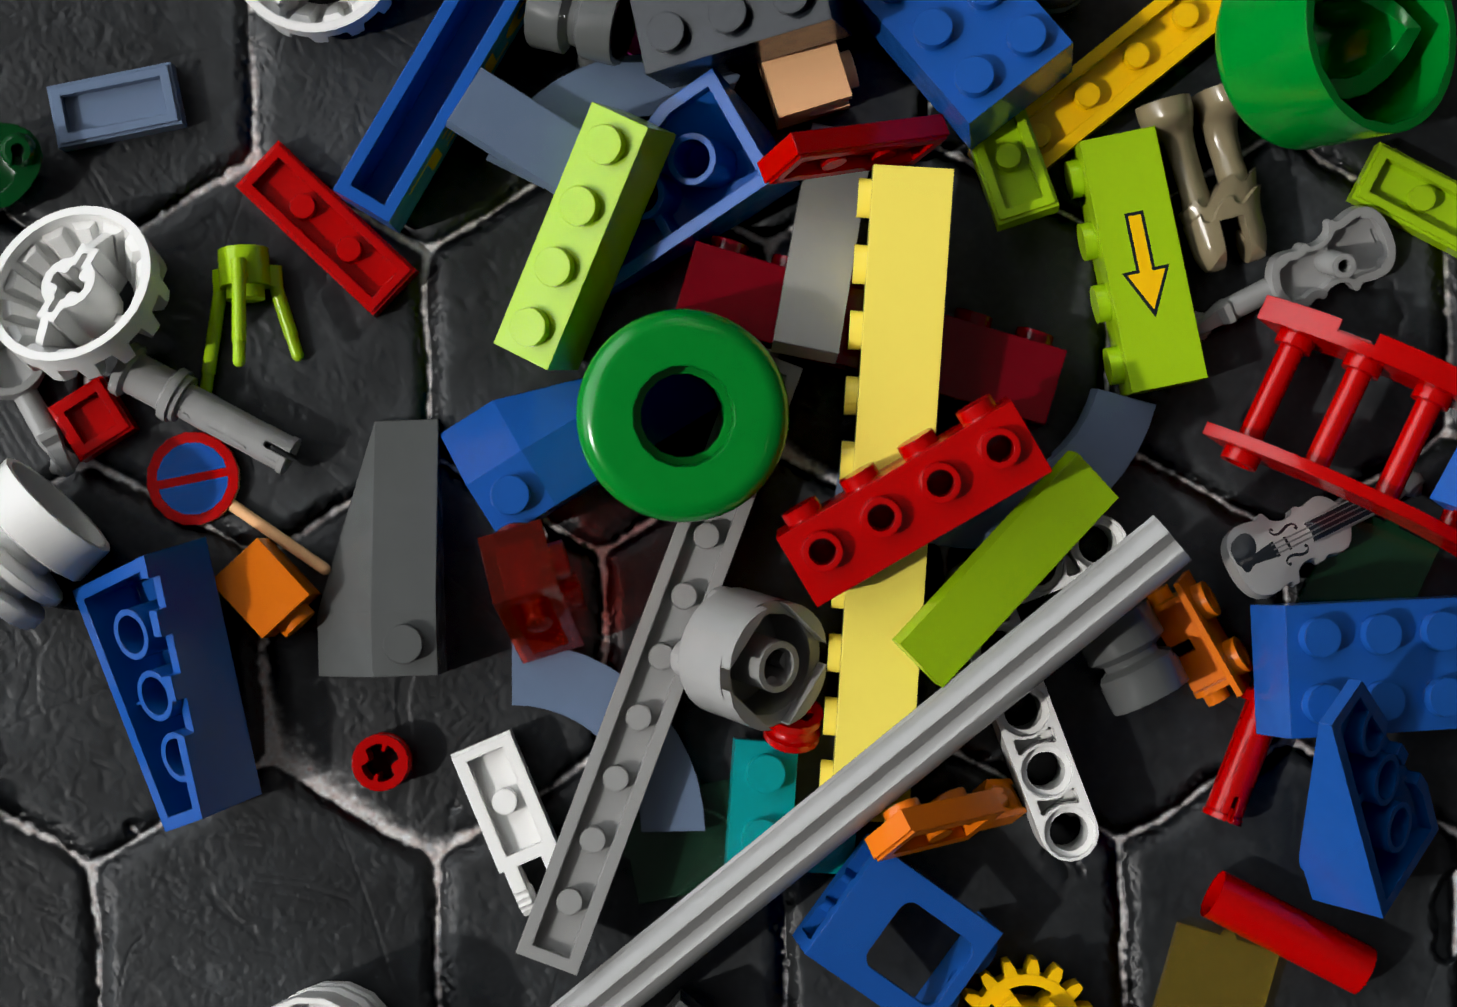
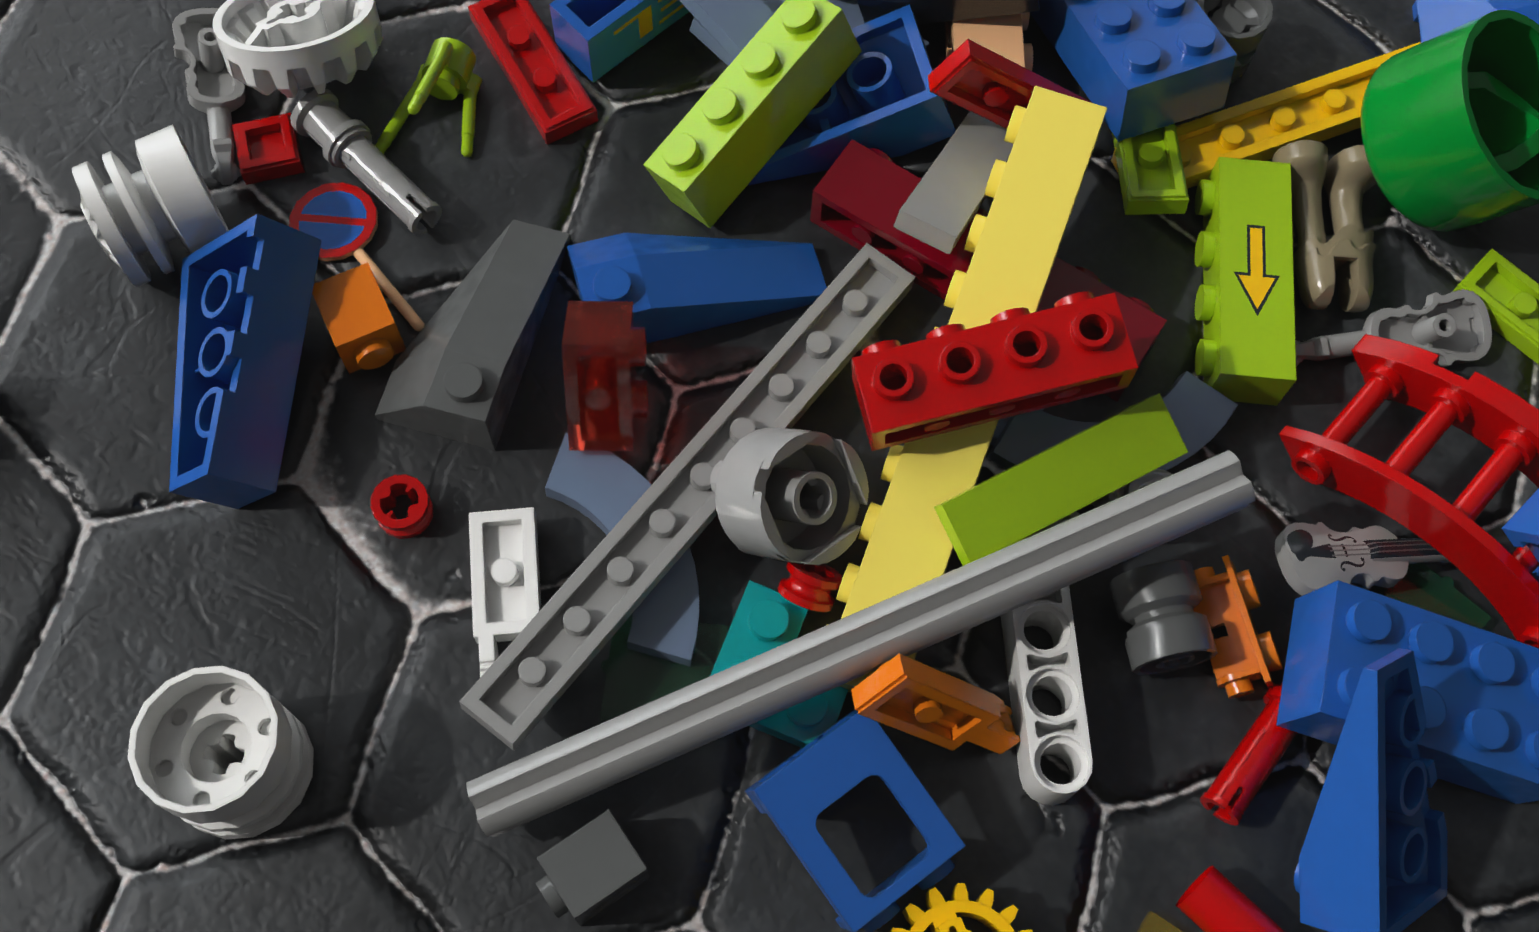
camera: 15 degrees right, 20 degrees down
(752, 410) = (784, 307): green piece -> none

